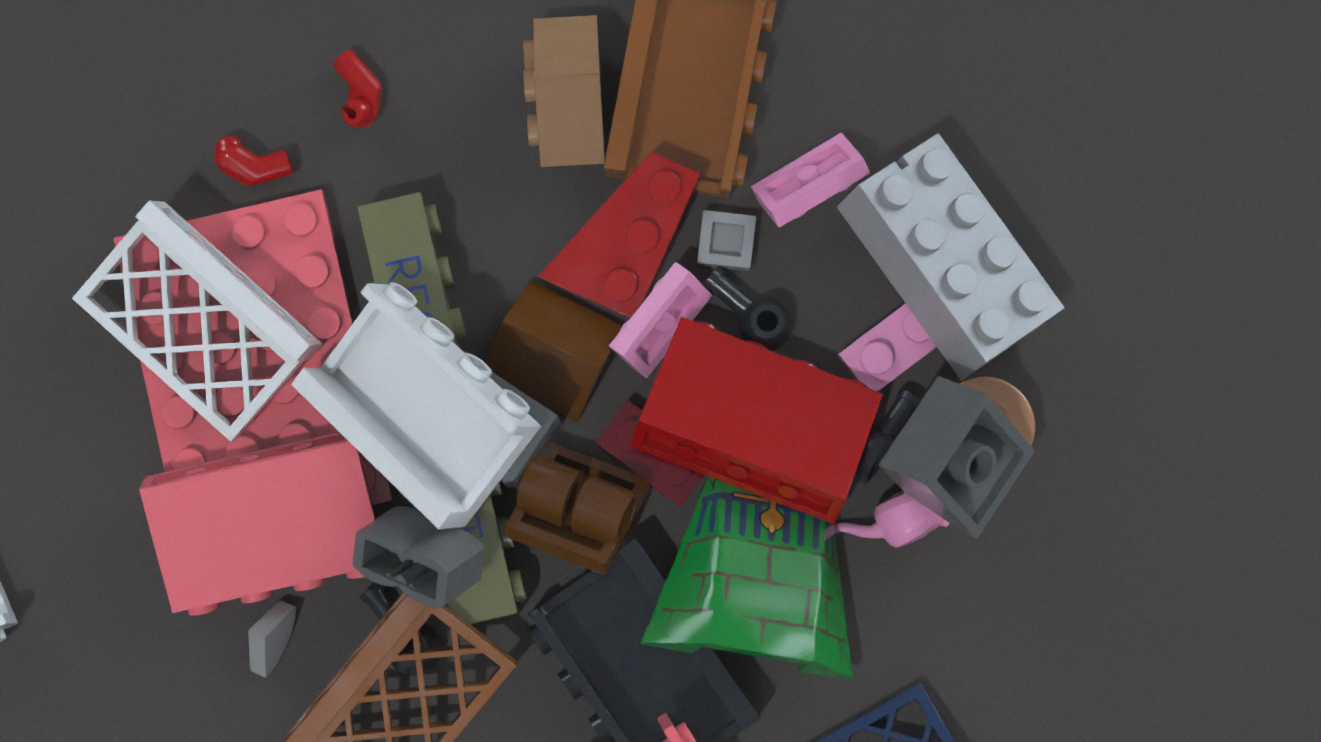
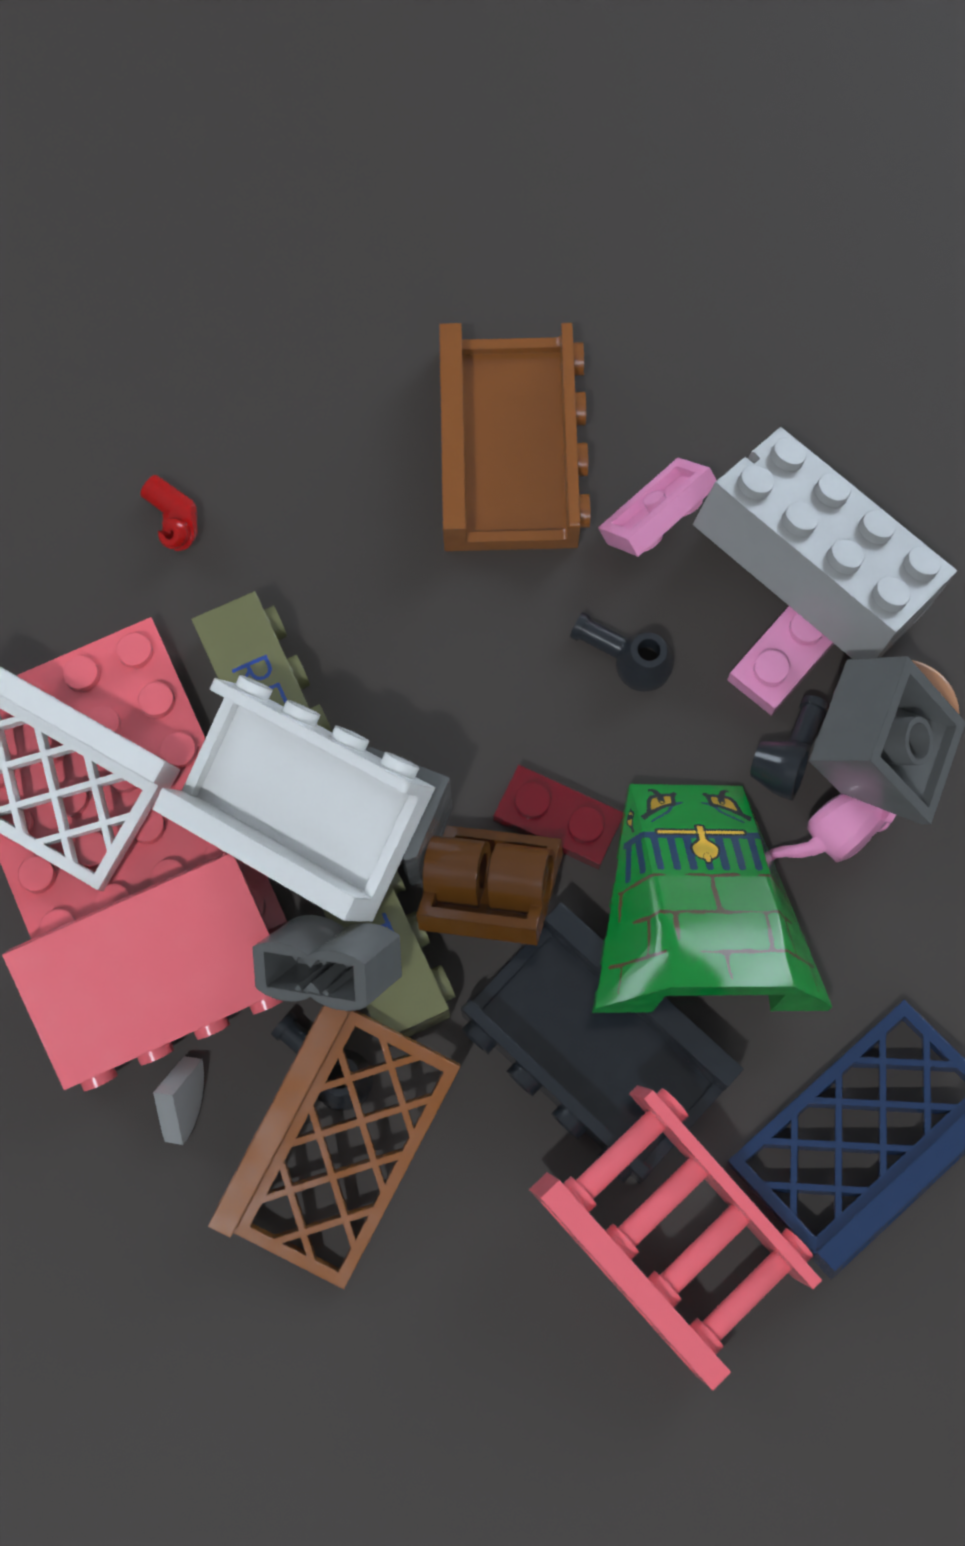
camera: 10 degrees left, 10 degrees down
(246, 166) = (69, 611): red arm -> none
(553, 349) = (432, 724): reddish brown slope -> none
(566, 85) = (388, 452): medium nougat brick -> none
(627, 238) = (482, 601): red wing -> none
(650, 330) = (535, 675): bright pink plate -> none
(726, 240) = (585, 586): light grey tile -> none
(757, 420) = (664, 752): red panel -> none

